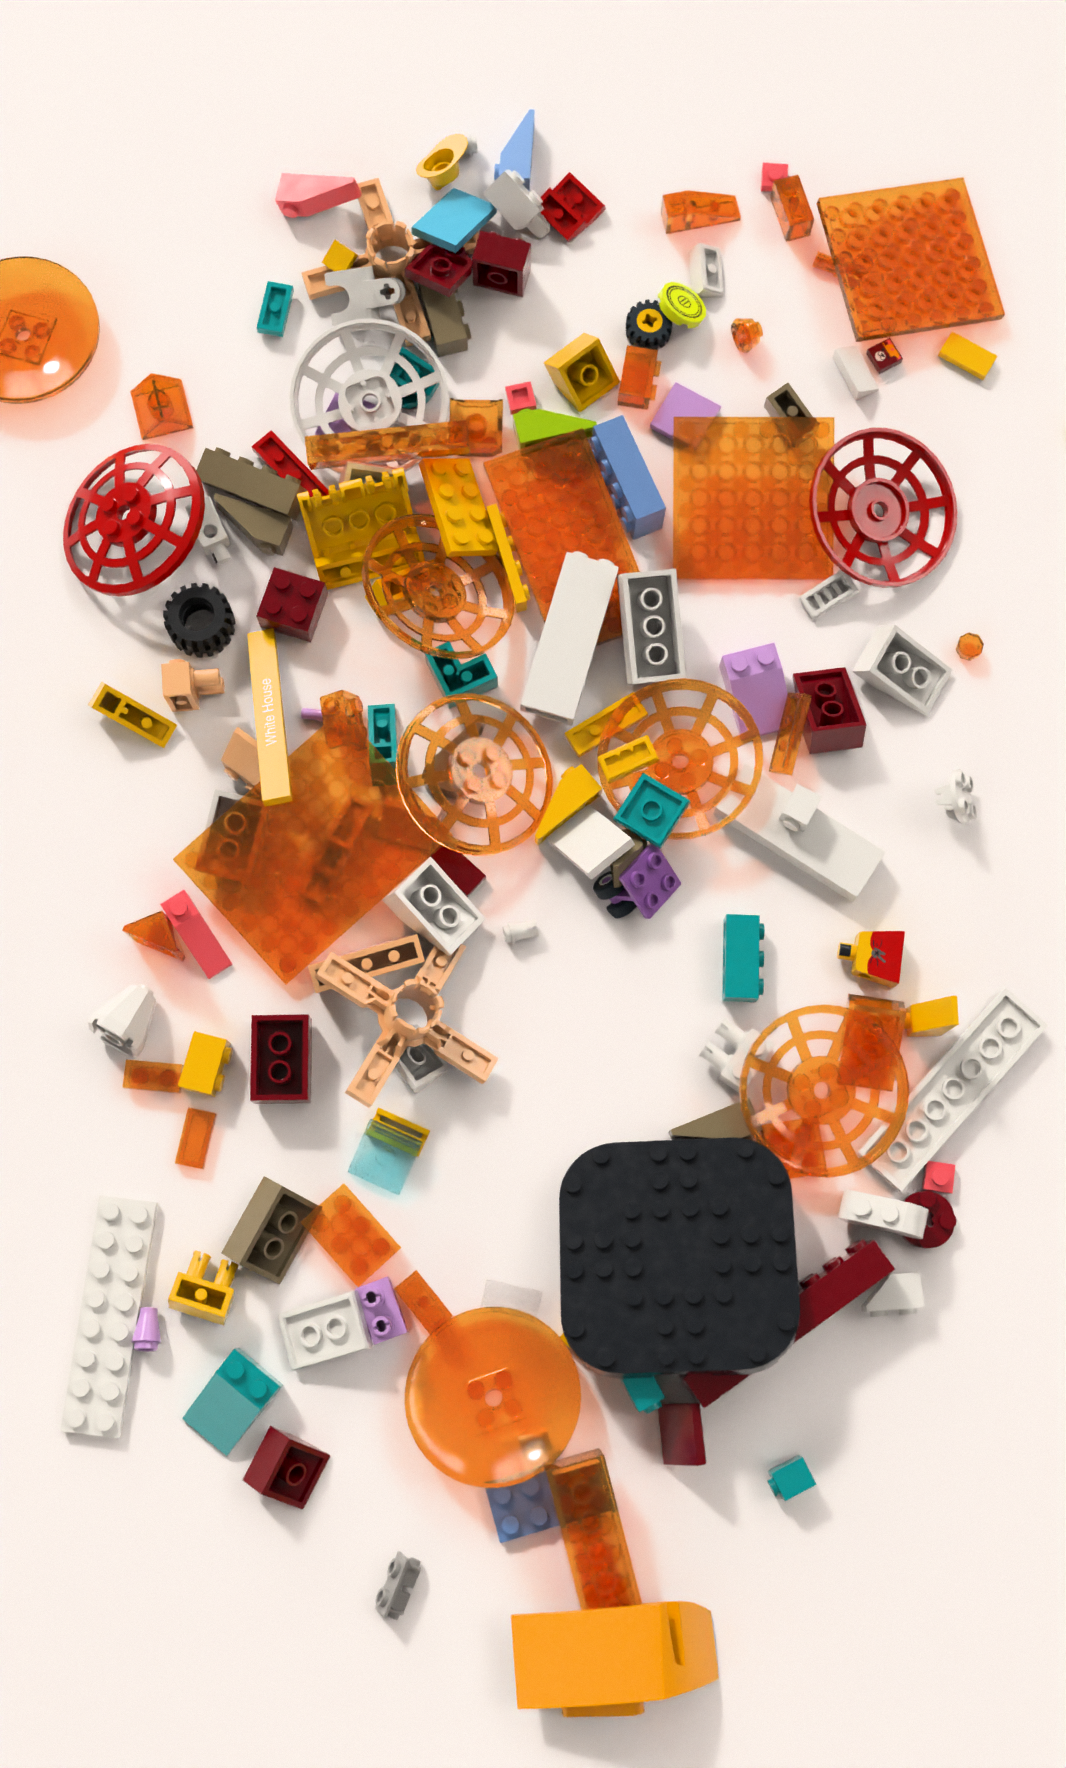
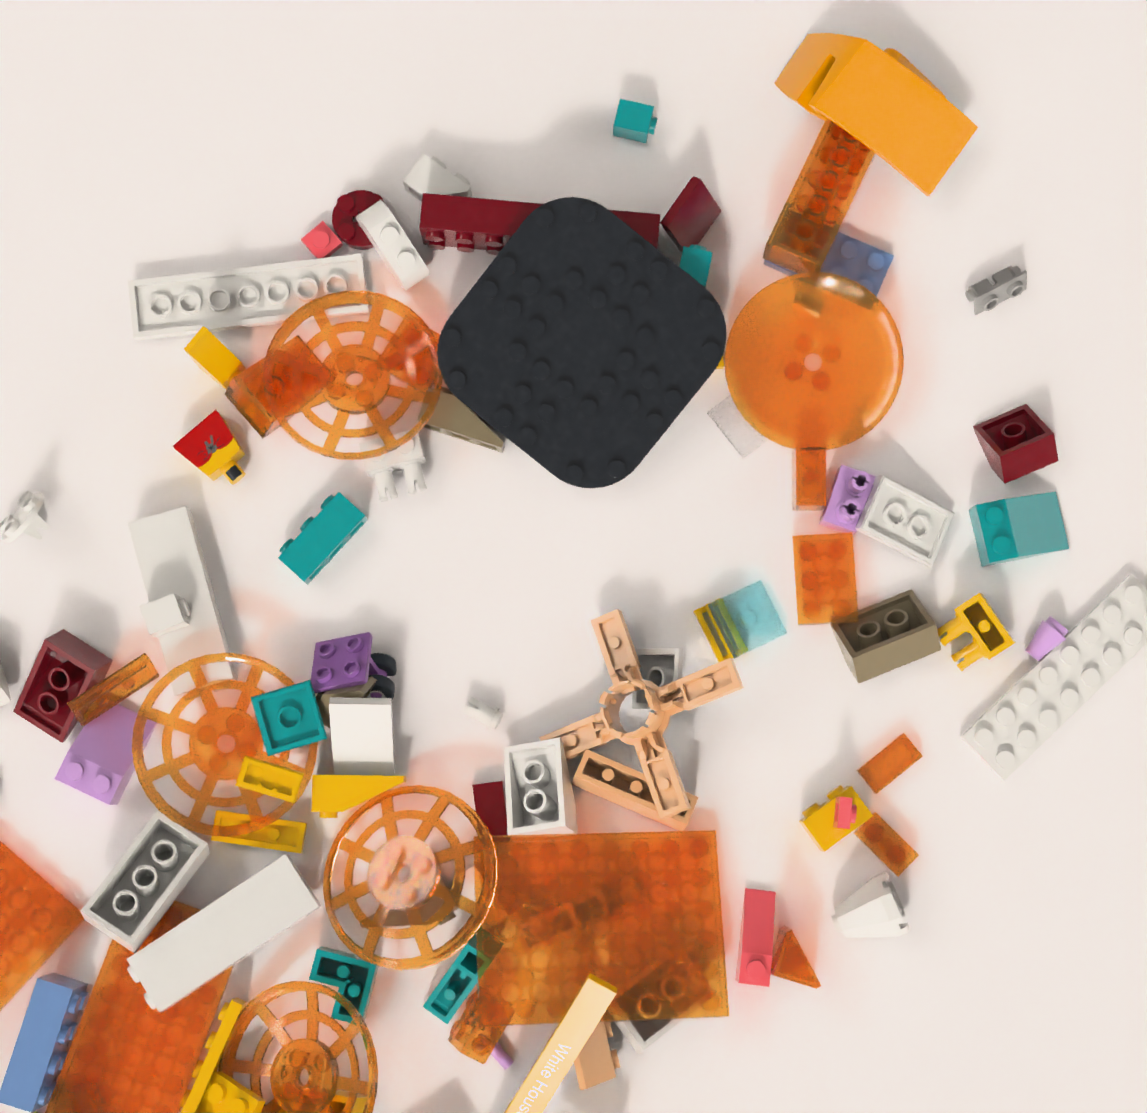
camera: 140 degrees left, 5 degrees up
(199, 1067) = (844, 813): none -> coral plate
(281, 1059) = (770, 767): dark red brick -> none

